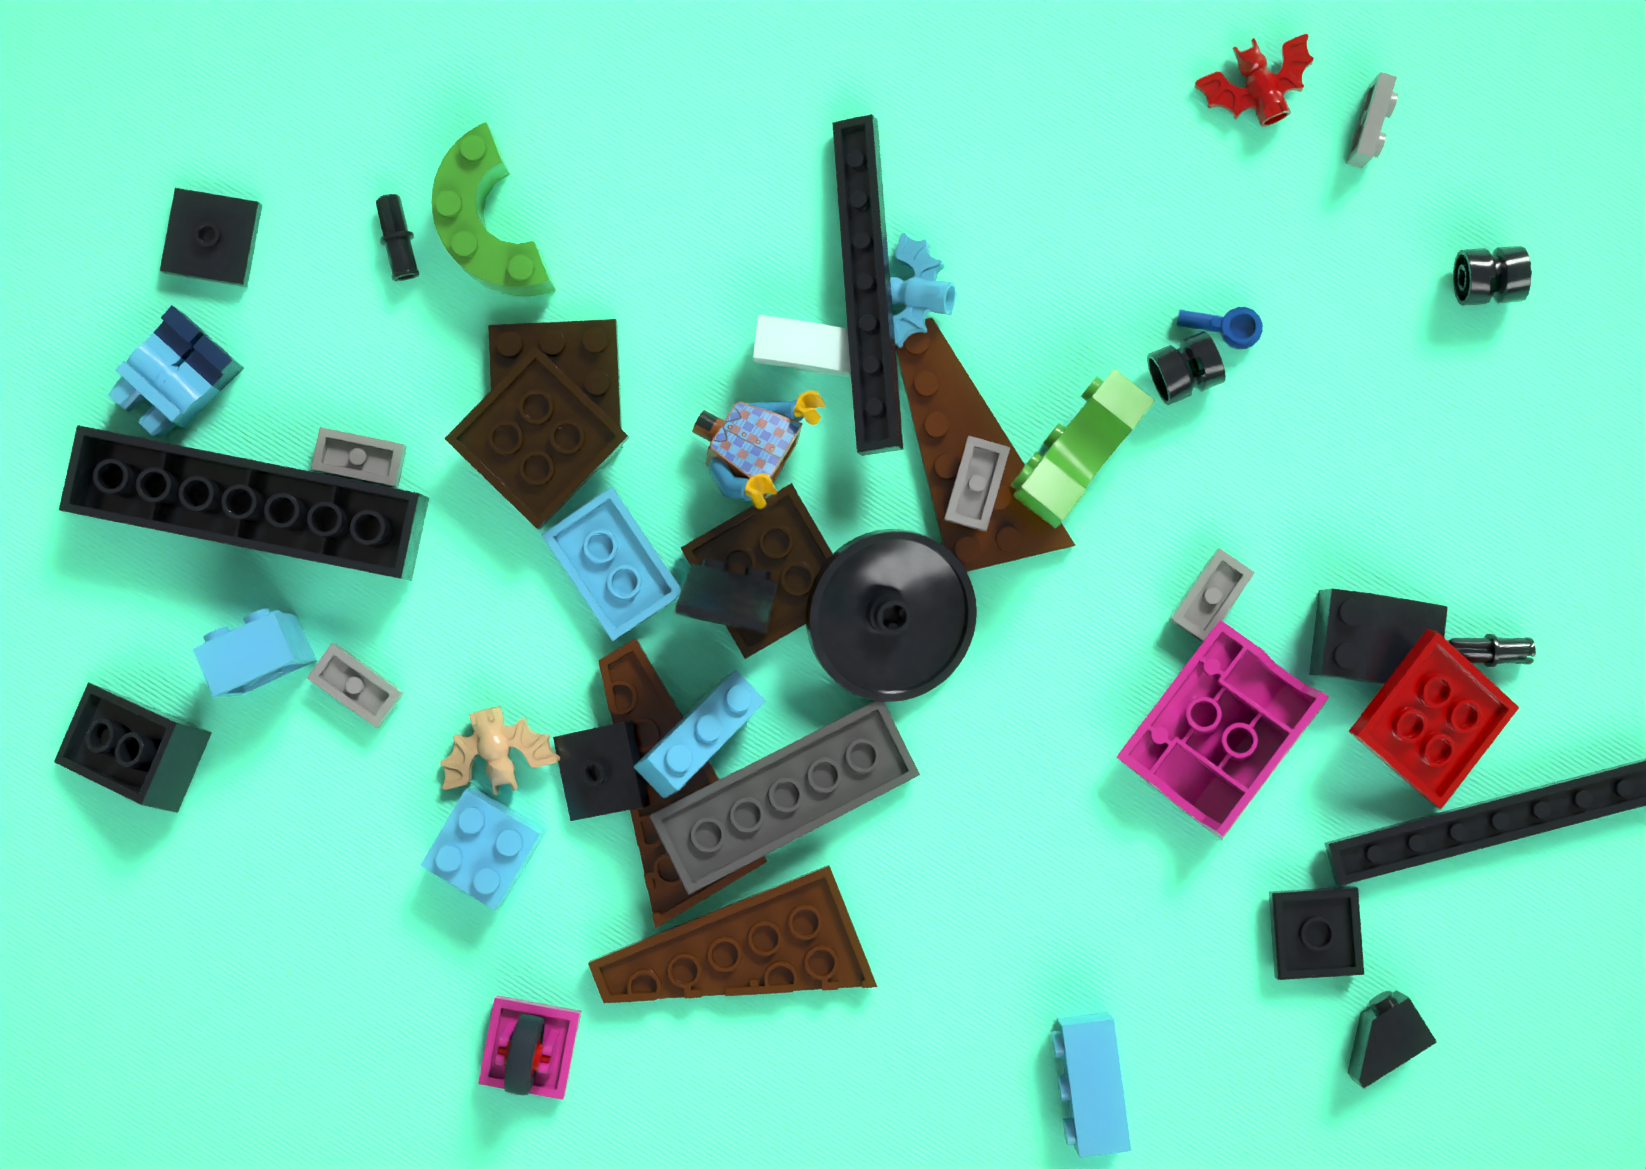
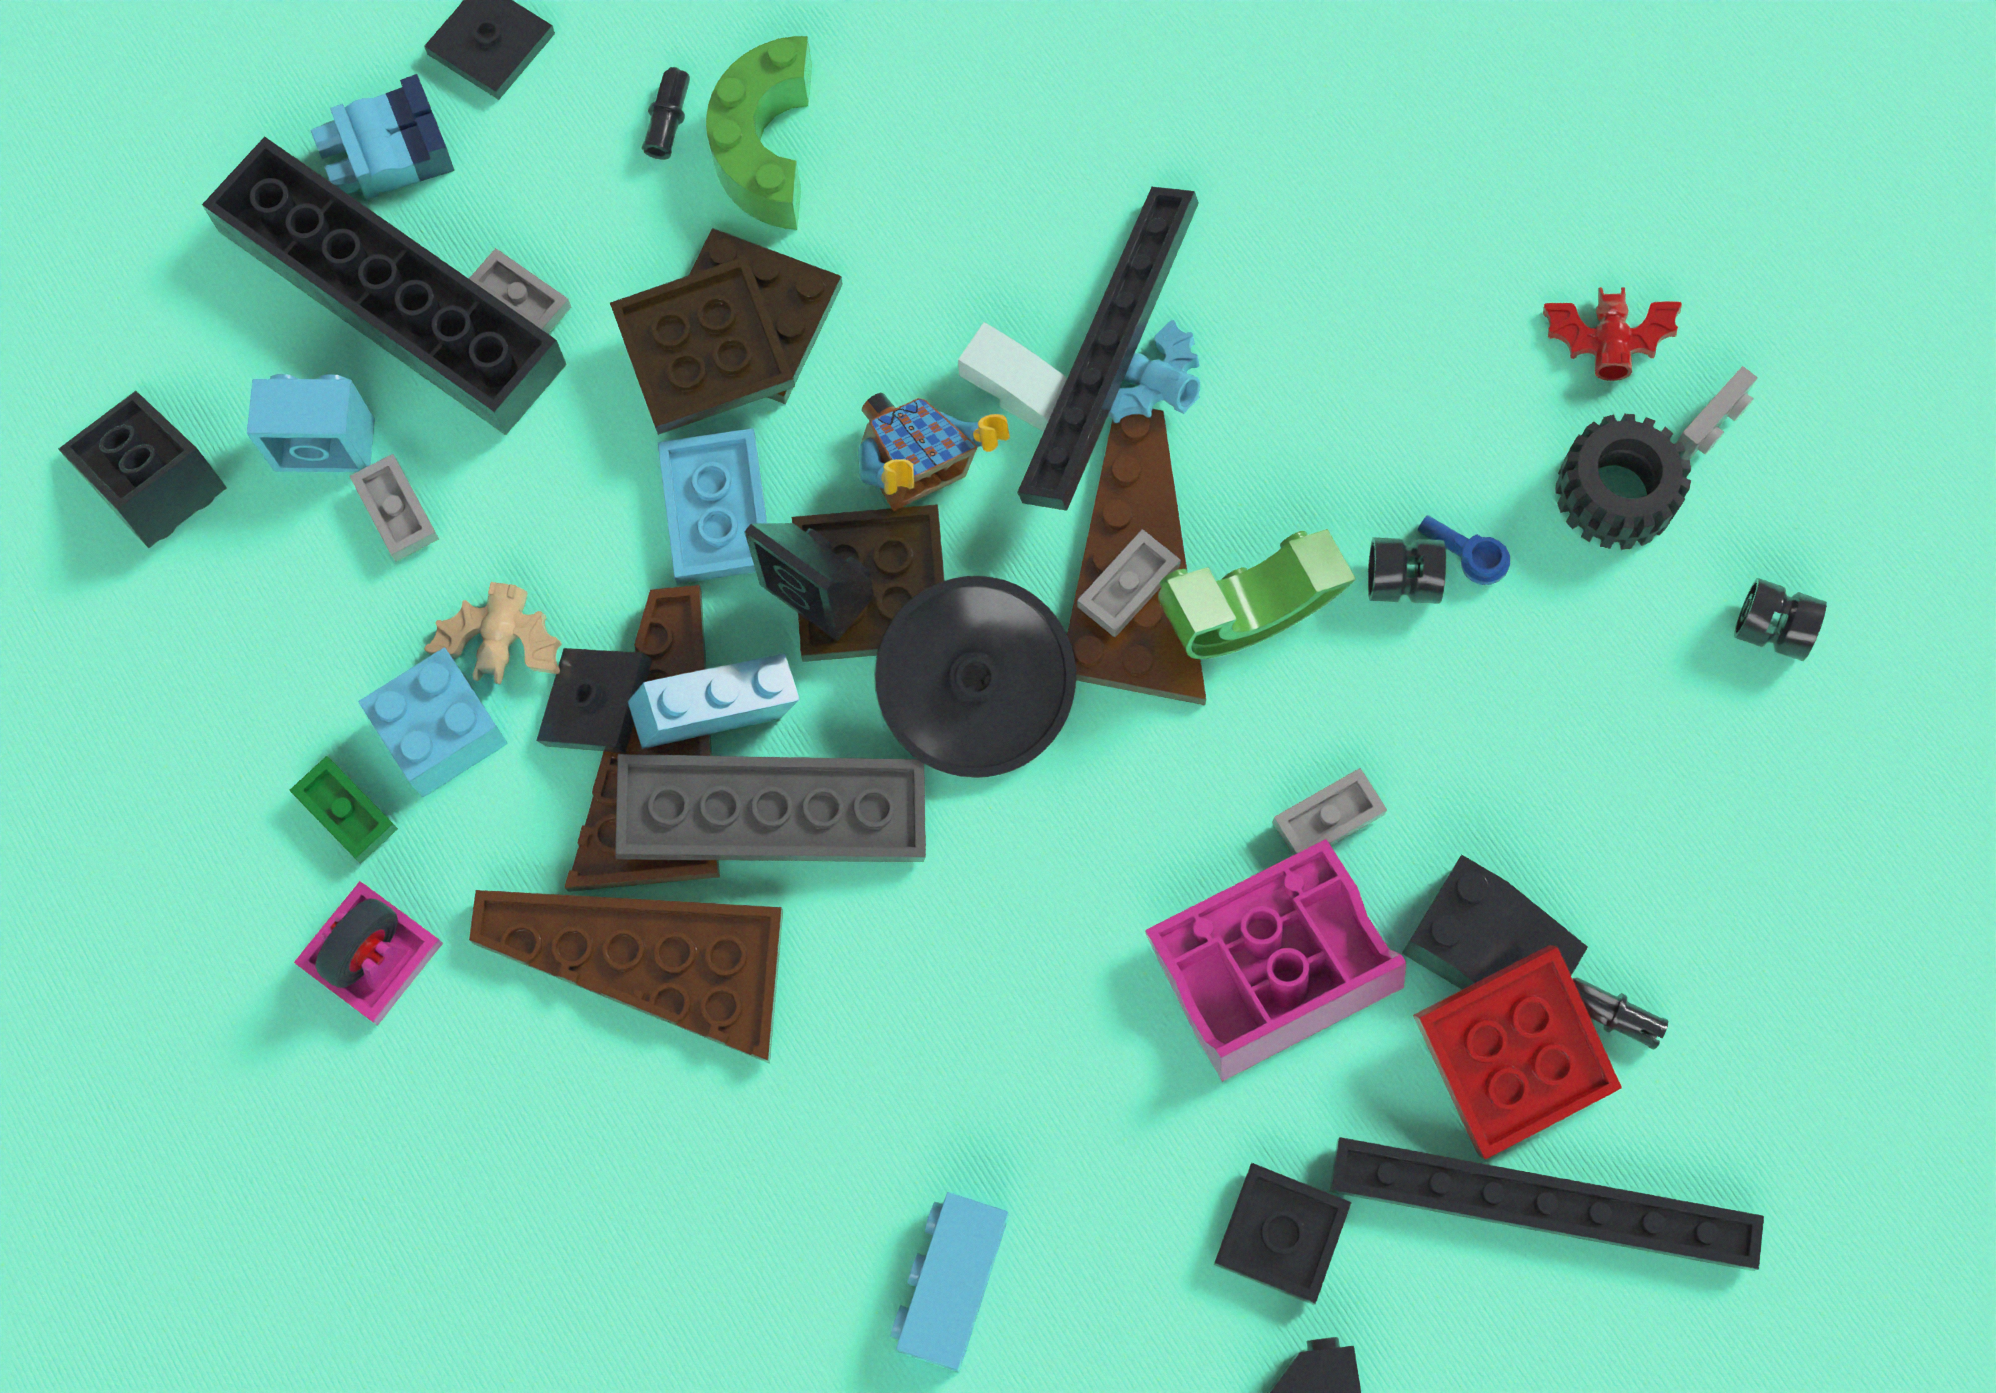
camera: 30 degrees right, 15 degrees down
(449, 946) = (343, 809): none -> green plate
(1344, 186) = (1646, 454): none -> black tyre

